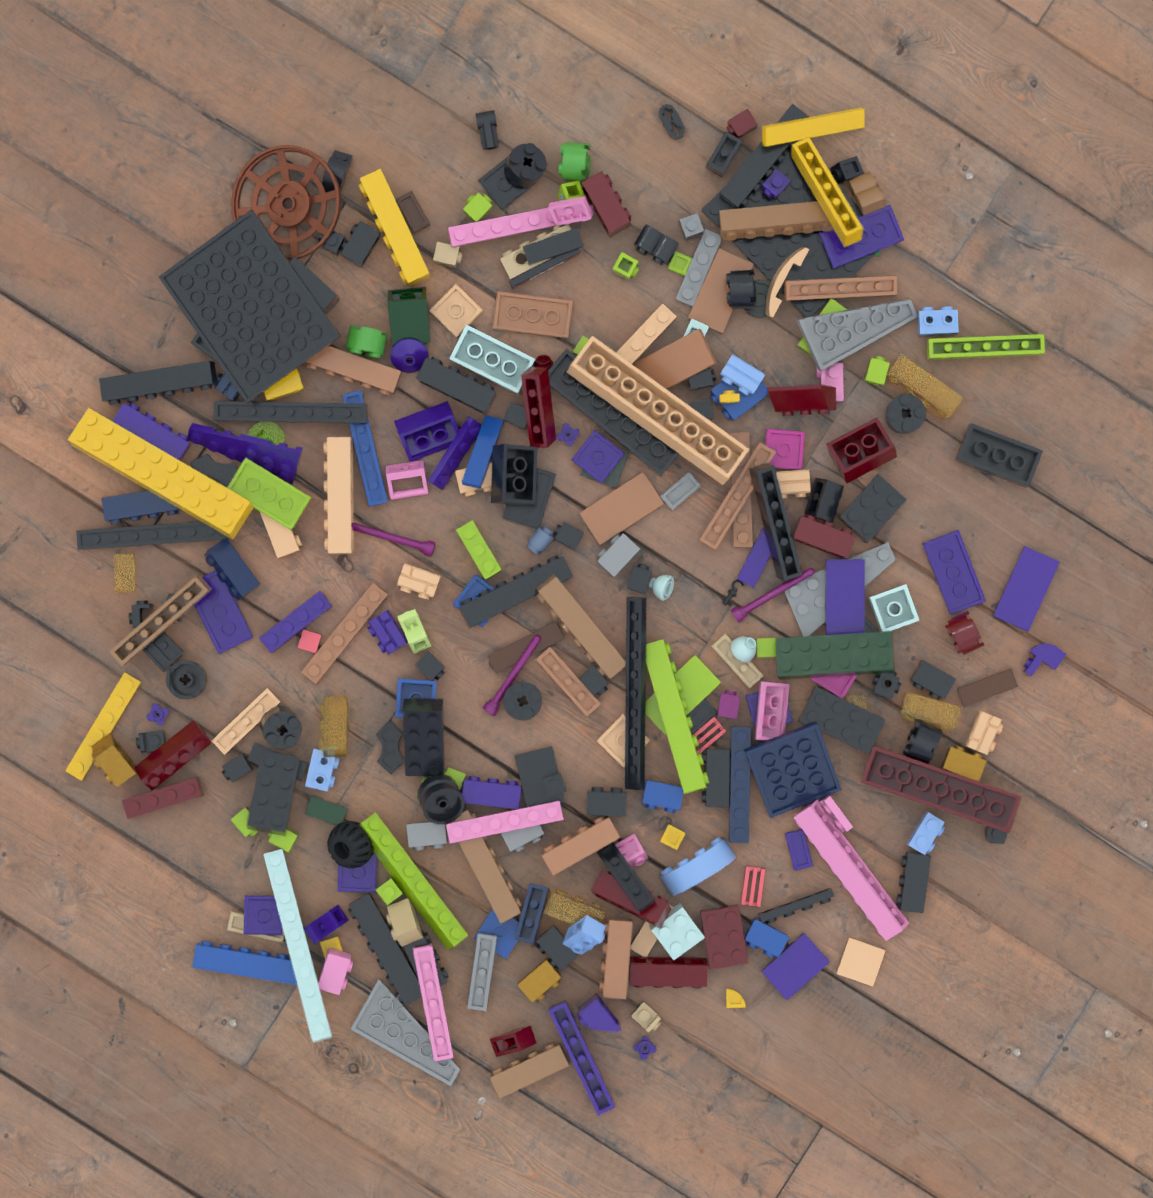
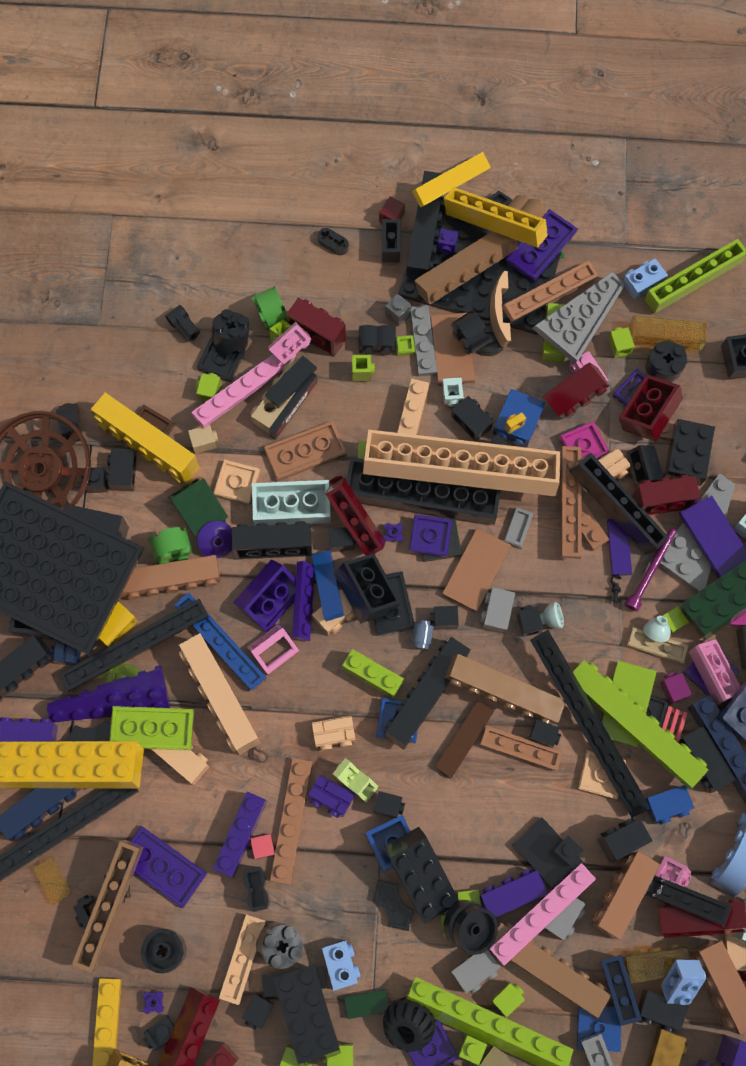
camera: 30 degrees left, 15 degrees down
(163, 651) = (127, 936): black plate -> none
(231, 569) = (153, 819): dark blue brick -> none
(284, 679) = (255, 882): none -> black brick
(334, 726) = (330, 914): clear yellow brick -> none
(425, 547) = (322, 699): magenta piece -> none
(440, 870) = (508, 998): none -> lime brick
(493, 705) = (465, 809): magenta piece -> none
(519, 690) = (498, 780): black brick -> none
(672, 837) = (701, 838): yellow plate -> none
(678, 360) = (455, 413): nougat tile -> none
(742, 375) = (514, 398): light blue brick -> none
(845, 424) = (622, 398): none -> dark purple tile

